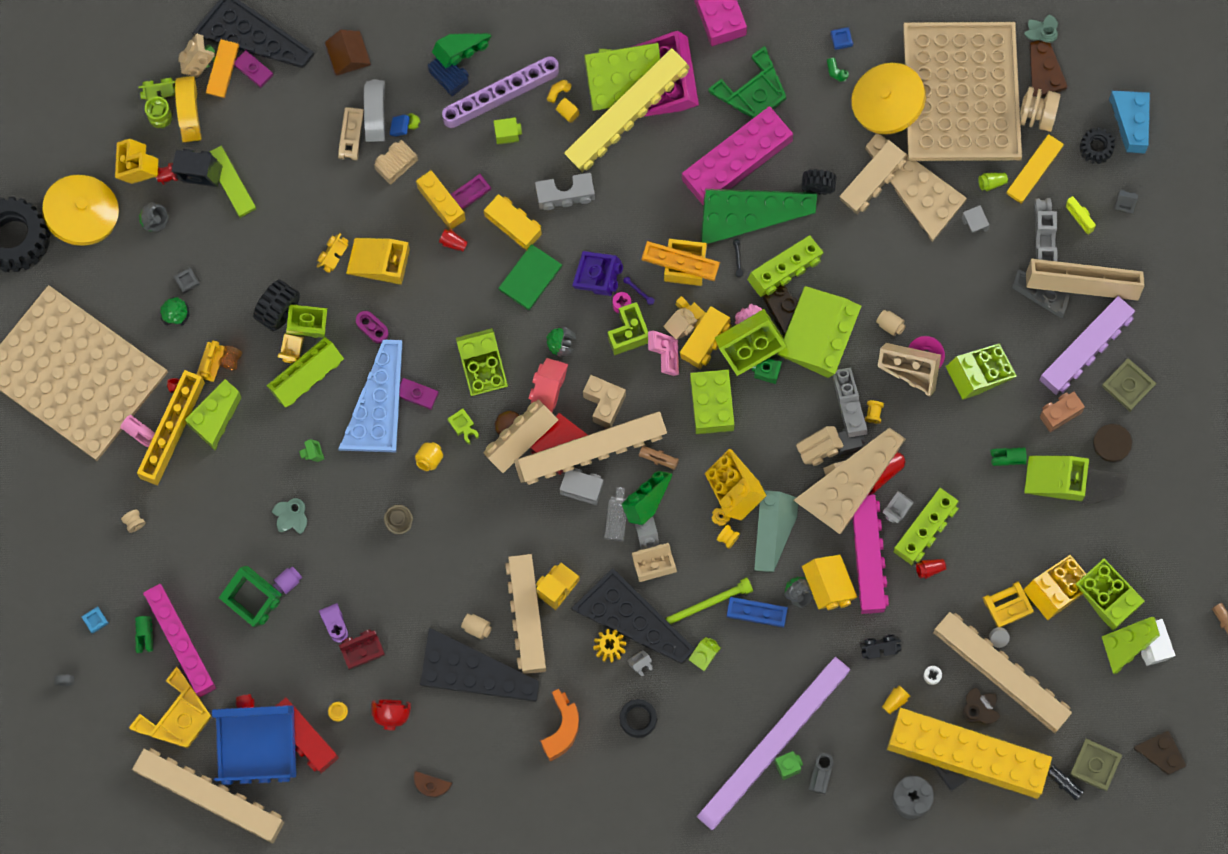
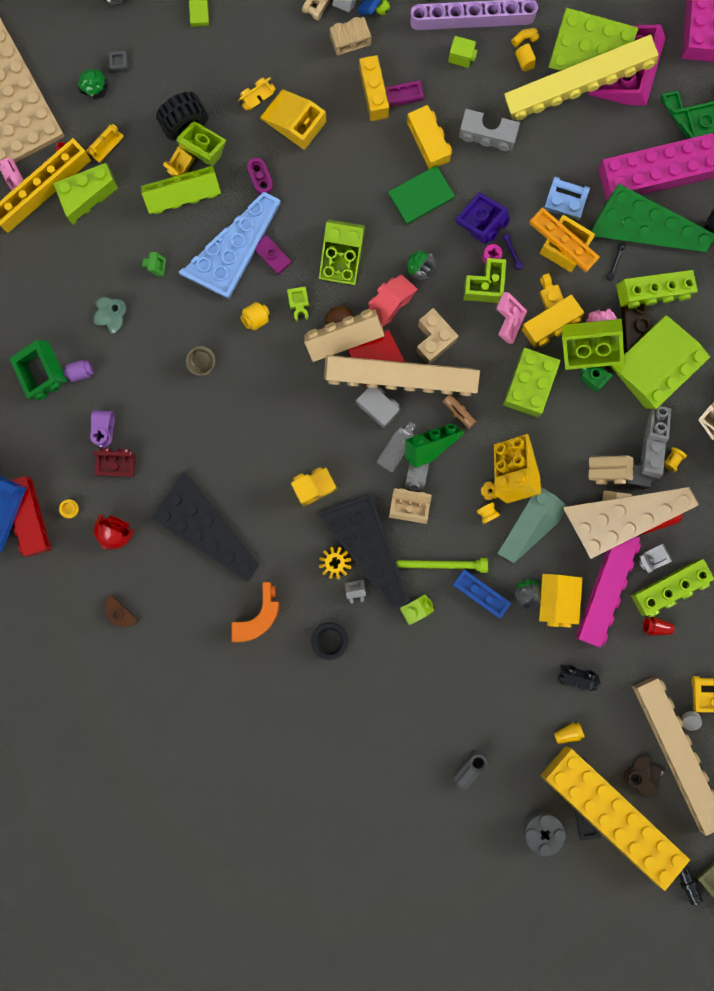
camera: 25 degrees right, 10 degrees up
(230, 358) = (122, 147): clear orange wheel -> none
(452, 240) = (367, 130): red cone -> none
(476, 626) = (225, 489): tan brick -> none
(527, 614) = (275, 499): tan brick -> none
(666, 226) = (566, 204): none -> light blue plate
(681, 323) = (537, 298): tan brick -> none
(773, 743) = (440, 721): lavender beam -> none
(788, 765) = (444, 749): bright green brick -> none
(934, 669) = (609, 721): white bush -> none

